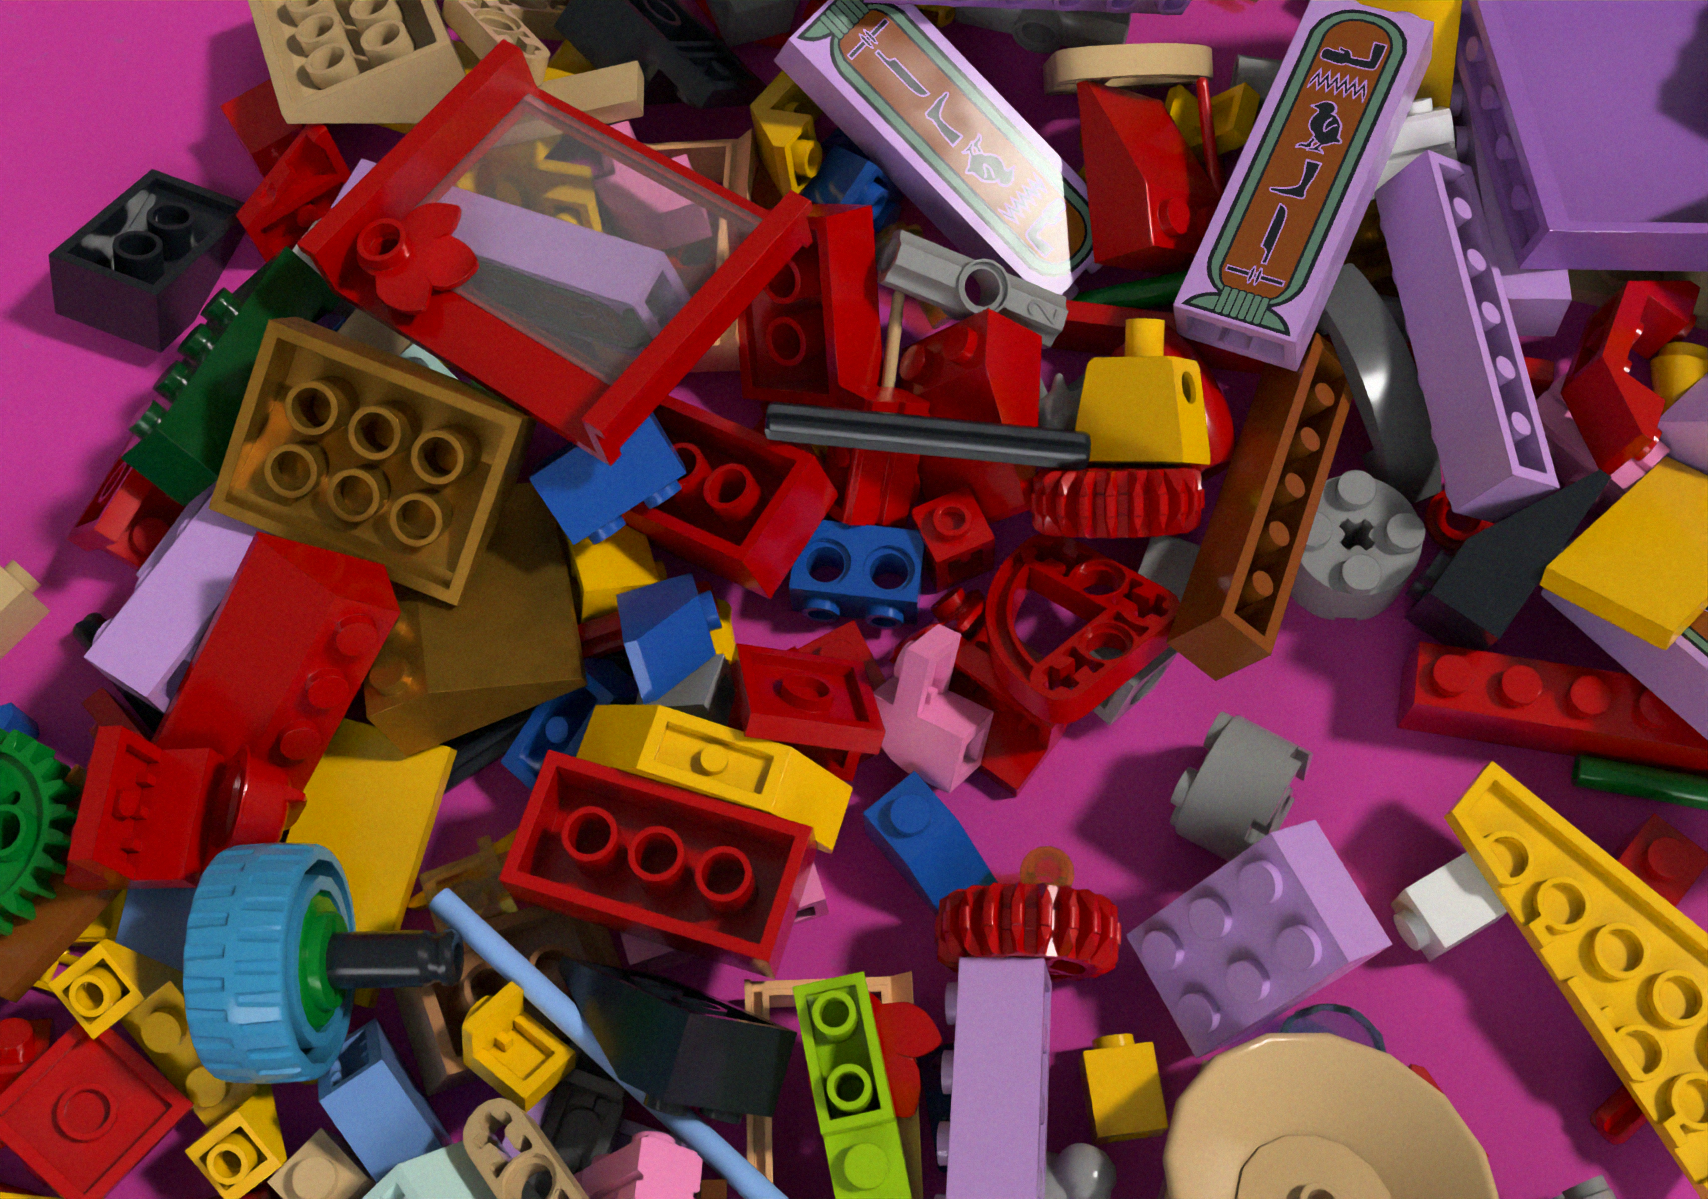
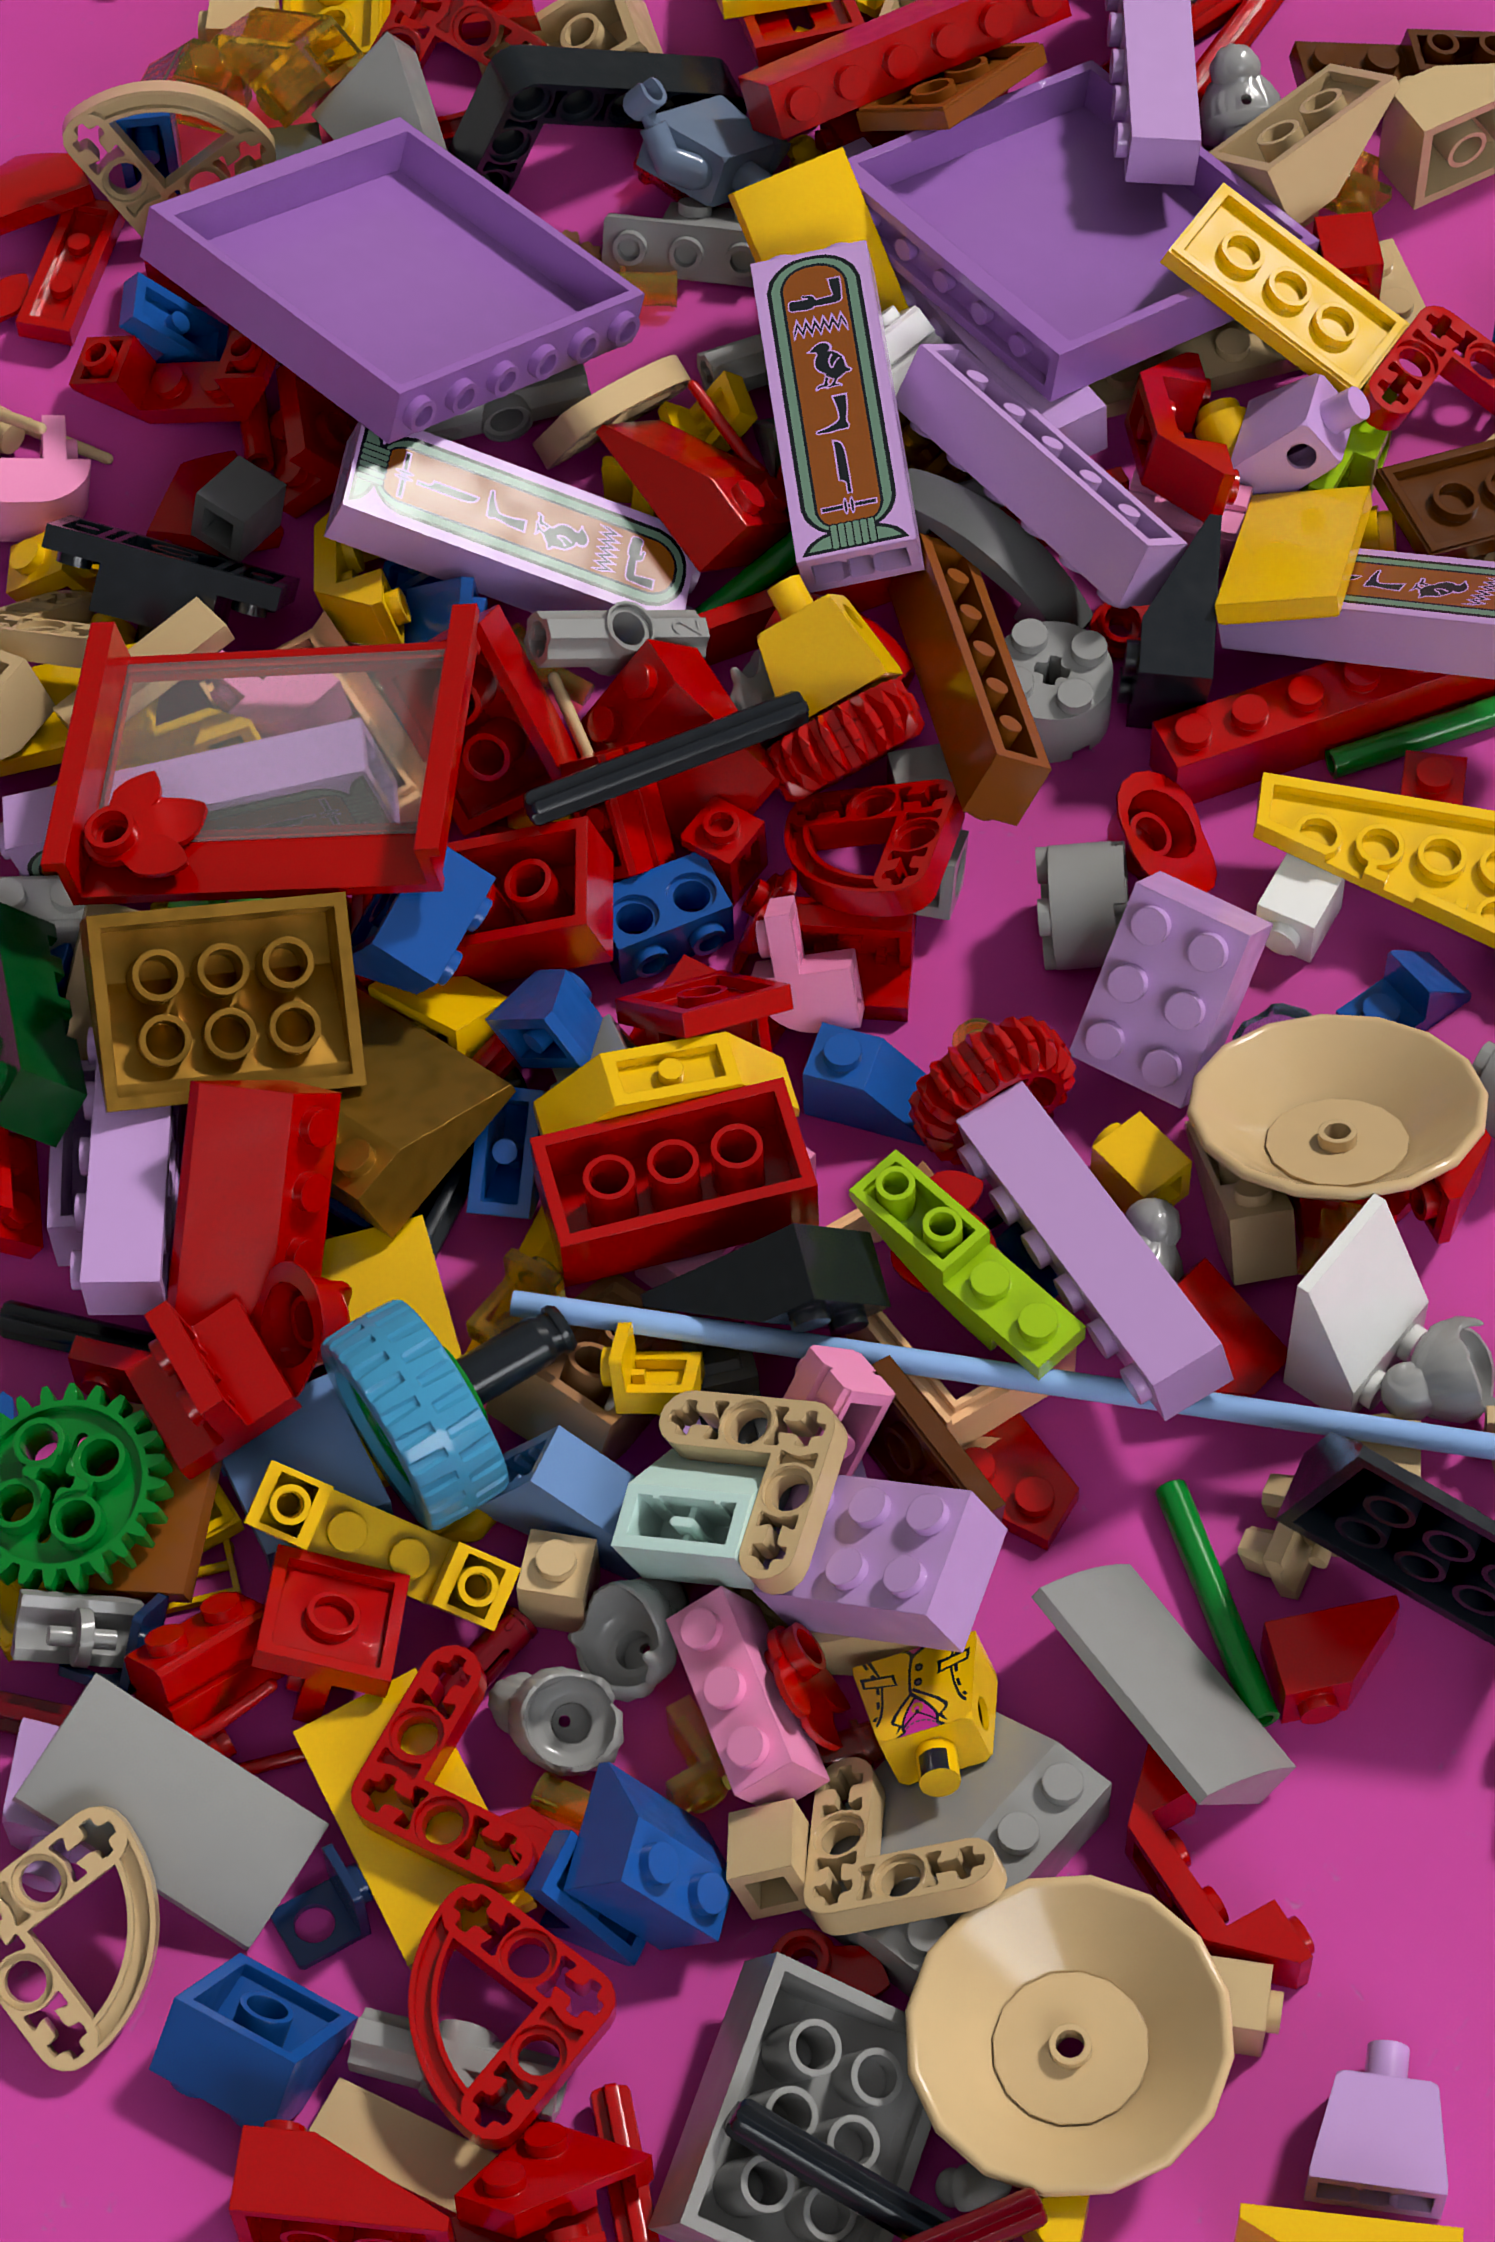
camera: 35 degrees left, 10 degrees down
(1359, 761) = (1161, 831): none -> red piece
(1495, 1064) = (1412, 993): none -> blue slope

